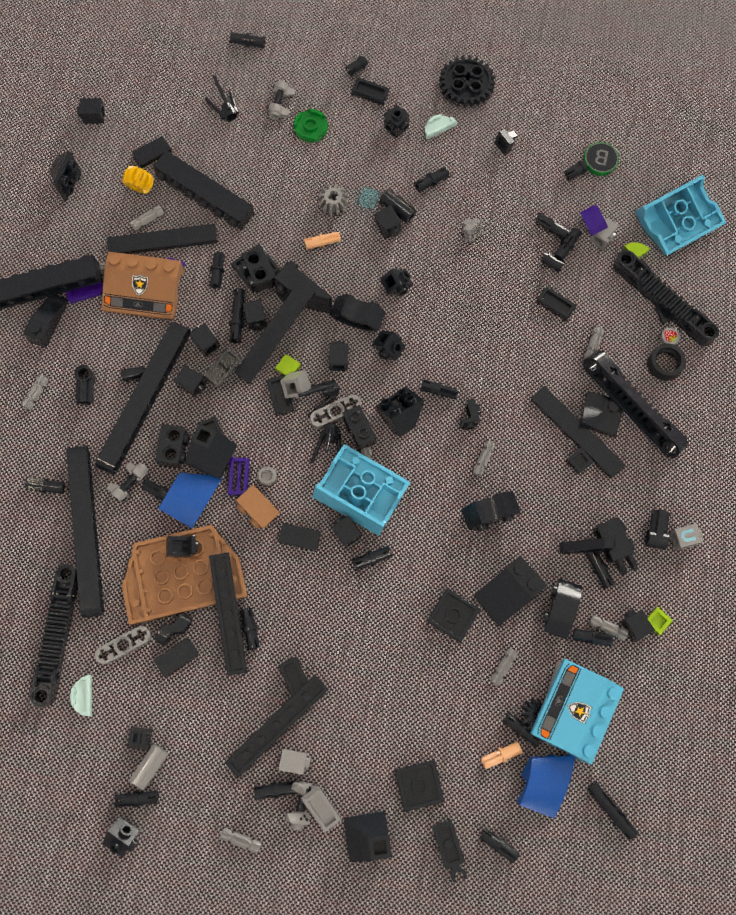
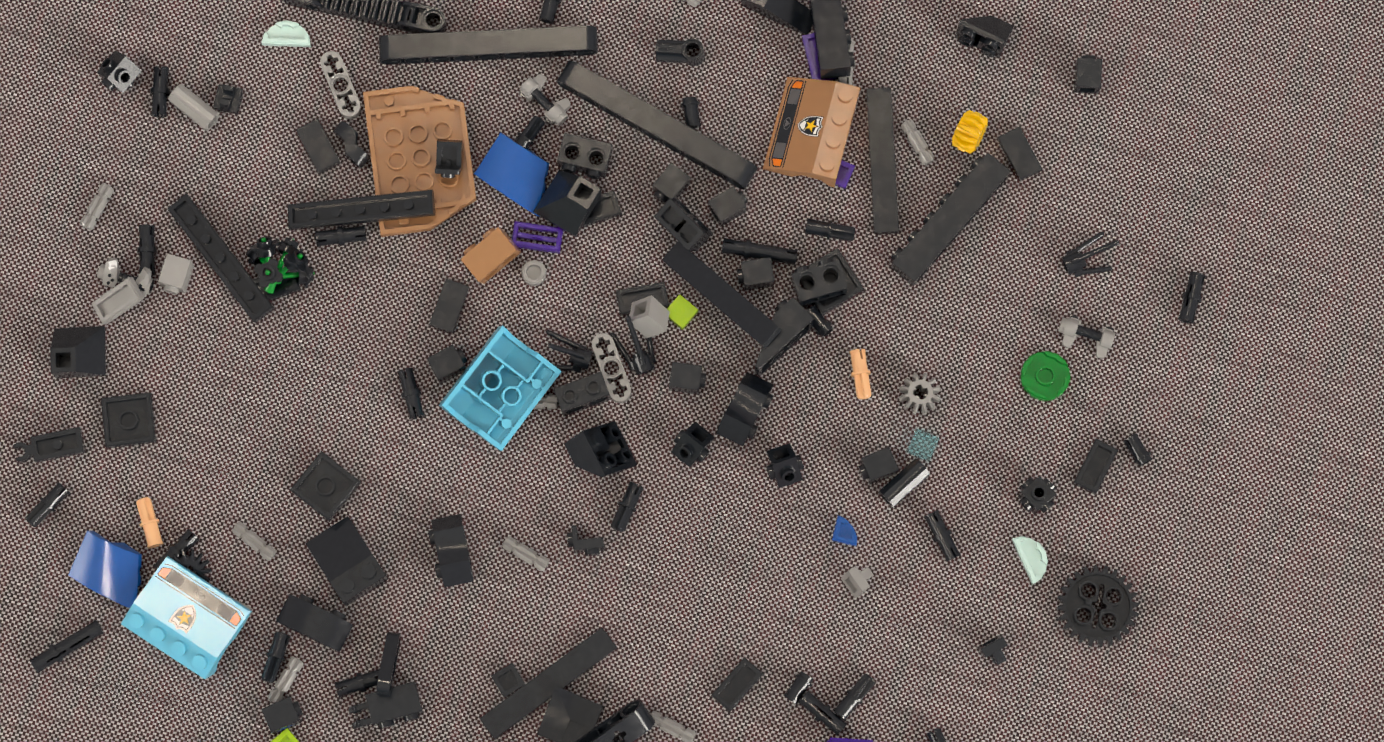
camera: 100 degrees right, 5 degrees up
(288, 675) = (271, 271): none -> black plant
(437, 243) = (844, 532): none -> blue tile

